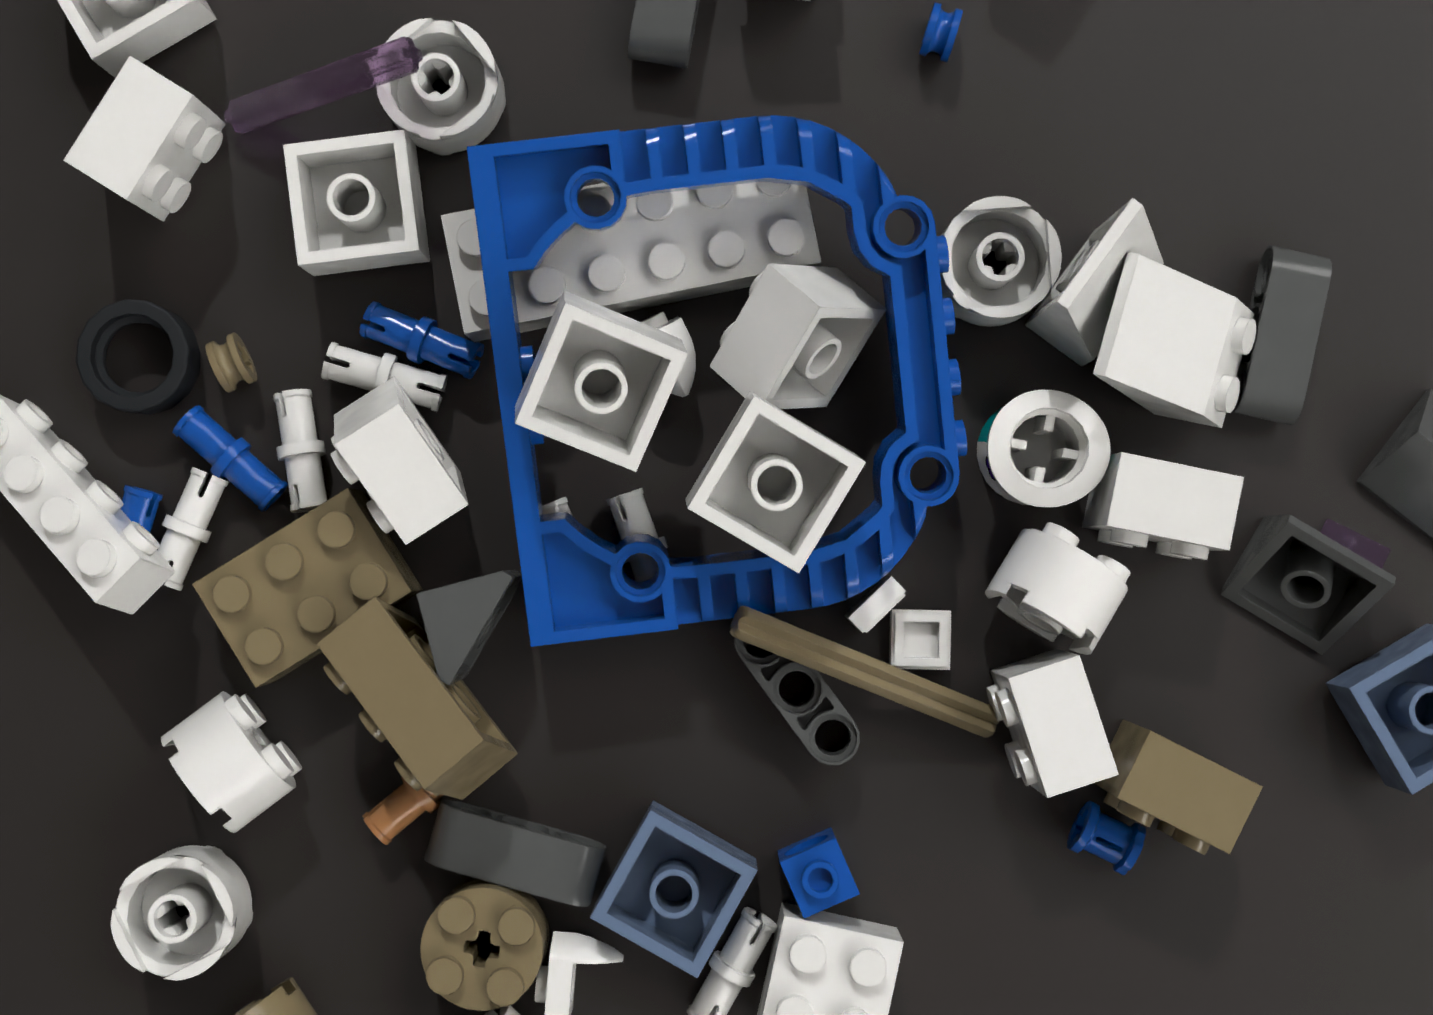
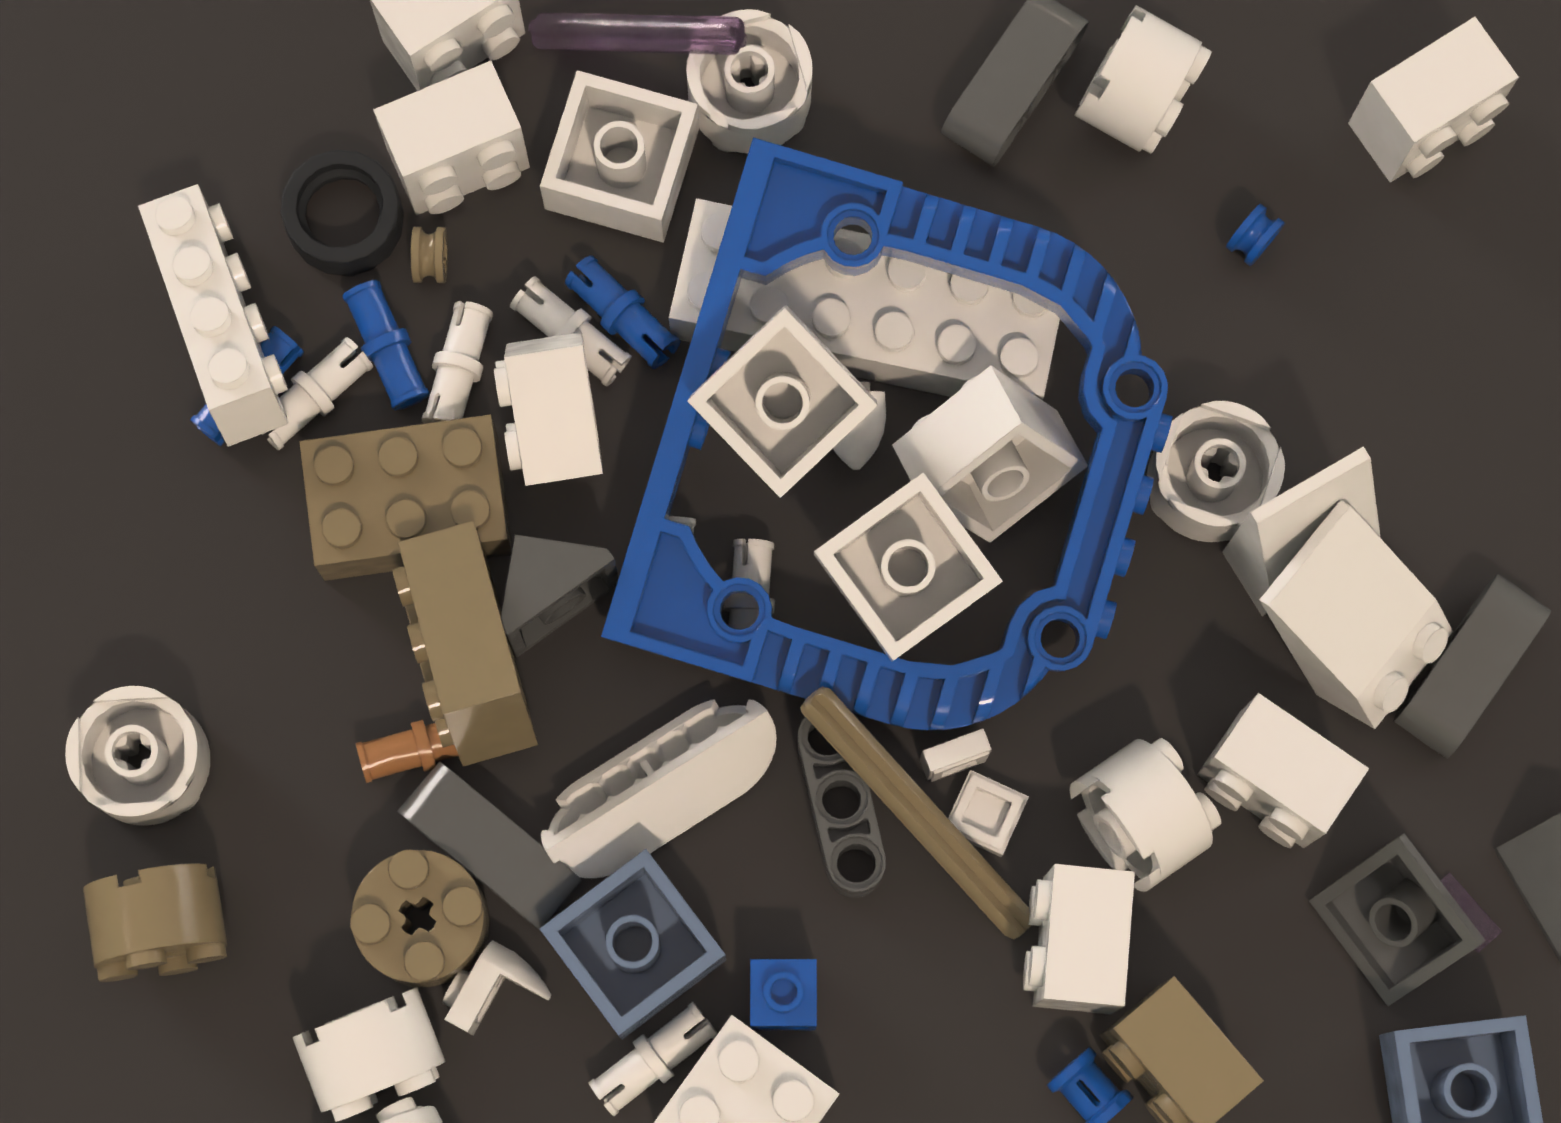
camera: 20 degrees right, 10 degrees down
(202, 254) = (453, 139): none -> white brick
(230, 759) = (255, 627): white brick -> none
(635, 741) = (660, 787): none -> white brick
(1043, 449) = (1184, 668): white hat -> none

